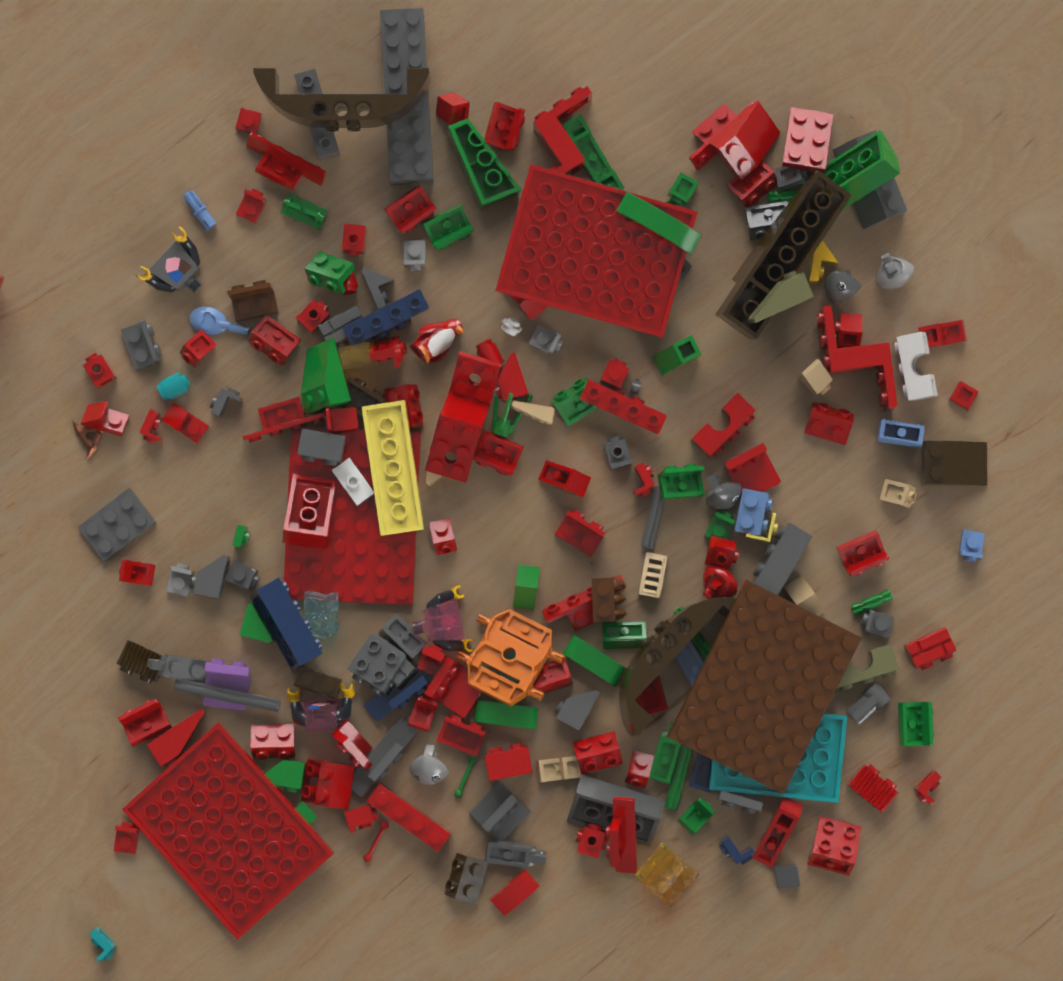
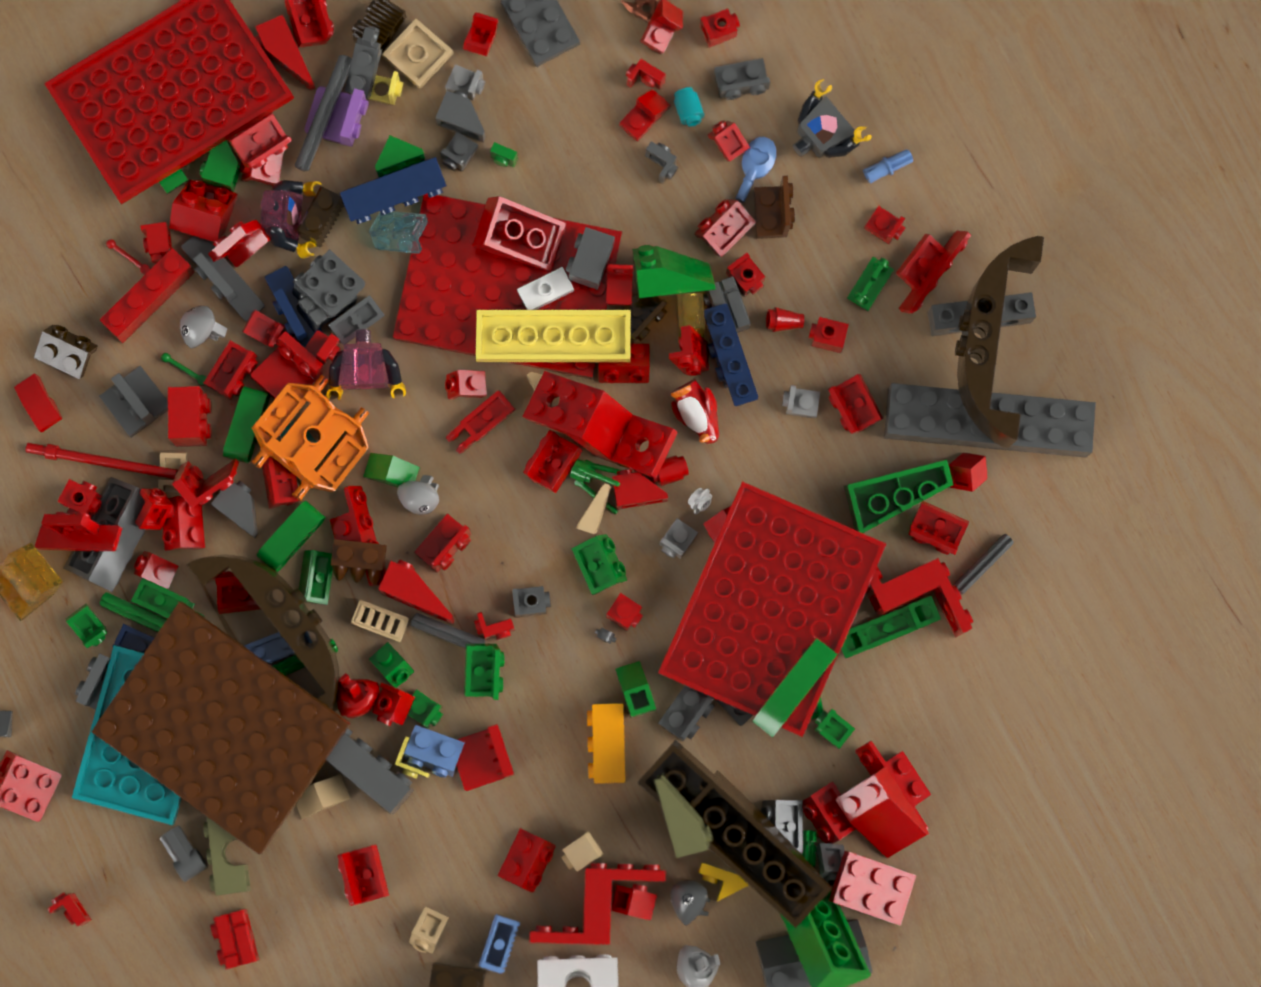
camera: 90 degrees right, 5 degrees down
(161, 624) = (417, 53): none -> tan plate
(196, 639) = (395, 89): none -> light yellow bracket
(248, 121) = (985, 237): red plate -> none
(264, 742) = (260, 141): none -> red bracket
(281, 416) = (634, 221): red bracket -> none
(329, 272) = (794, 299): green bracket -> none
(375, 282) = (774, 350): dark grey slope -> none
(448, 227) = (827, 445): green bracket -> none
(471, 517) = (482, 420): none -> red hinge
(513, 854) = (82, 408): dark grey hinge -> none
(527, 86) = (983, 563): none -> dark grey axle
(545, 559) = (420, 496): none -> light grey piece
(554, 872) = (54, 452): none -> red bar
(564, 478) = (510, 535): red slope -> none
(568, 739) = (195, 489): none -> red bracket
(592, 774) = (155, 509): none -> red bracket
(624, 552) = (408, 588): none -> red slope
(629, 409) = (583, 615): red bracket -> none
(687, 559) = (391, 665): none -> green bracket
(689, 312) = (685, 712): none -> dark grey bracket
(711, 440) = (554, 752): red arch -> none
(722, 495) = (460, 715): dark grey piece -> none
(724, 372) = (606, 743): none -> light orange brick
(730, 850) = (36, 660): dark blue bracket -> none
(778, 831) = (51, 720): red slope -> none
(871, 602) = (303, 877): green axle -> none
(873, 788) = (81, 843): red brick -> none
(877, 623) = (277, 880): dark grey bracket -> none
(915, 723) = (148, 906): green bracket -> none

